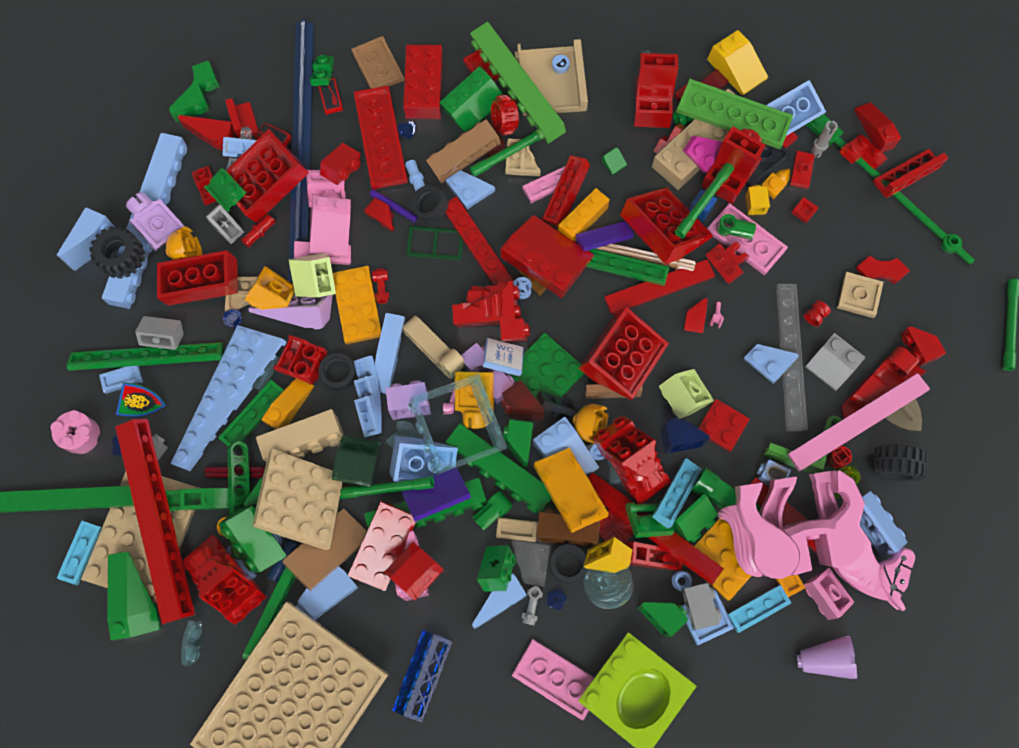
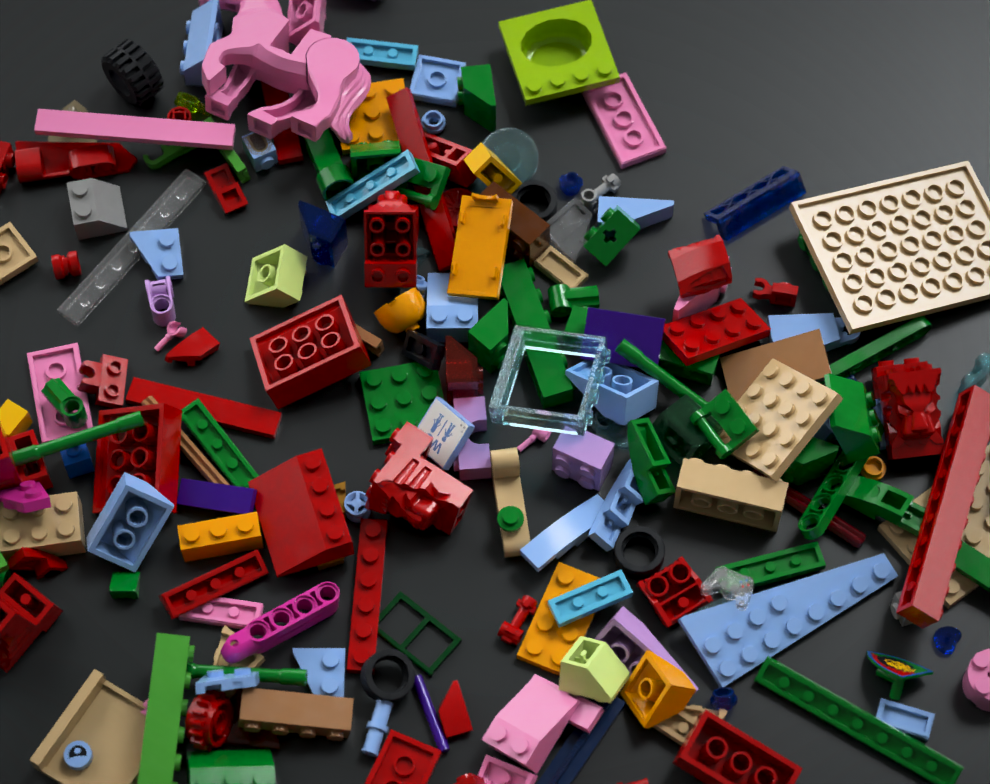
camera: 145 degrees left, 10 degrees down
(159, 332) = (823, 735): light grey brick -> none
(264, 380) = (731, 585): none -> clear piece
(287, 404) = (727, 547): light orange slope -> none
(327, 478) = (732, 420): none -> green plate
(344, 317) = (590, 598): none -> medium azure plate
(358, 613) = (780, 293): none -> red plate
(364, 423) = (649, 462): none -> green slope
(423, 330) = (510, 518): none -> green plate
(466, 402) = (505, 435): light orange plate -> none
(509, 132) = (218, 680): none -> light blue wing
(517, 163) = (287, 613): none -> dark pink piece
(637, 182) = (129, 523): none -> light blue slope
(701, 606) = (436, 82): light grey brick -> none
(723, 425) = (265, 228): red plate -> none
(743, 332) = (160, 297): none -> lavender piece
(768, 433) = (225, 188): none -> red slope

